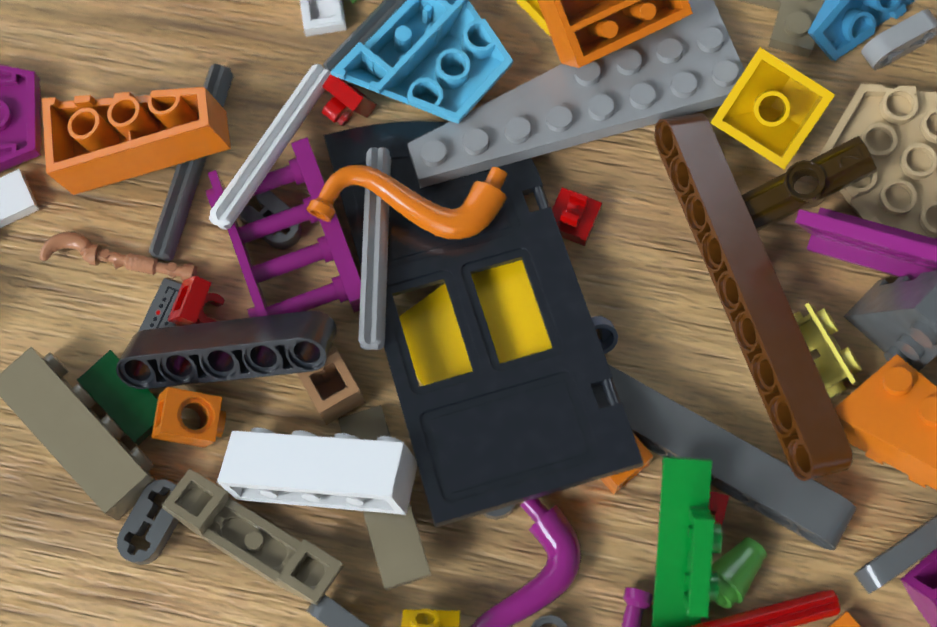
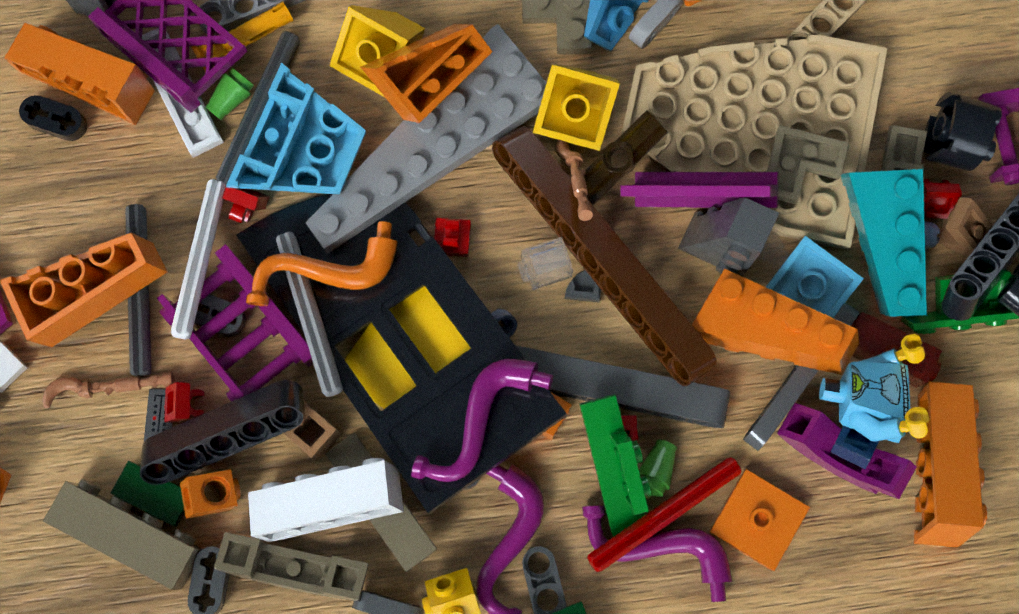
camera: 25 degrees left, 5 degrees up
(567, 390) = (500, 374): none -> magenta animal
(675, 281) = (545, 264): none -> clear brick
(711, 326) = (583, 288): none -> dark grey tile
(748, 172) = (574, 162): none -> nougat piece
(834, 364) = (682, 287): light yellow hinge -> none

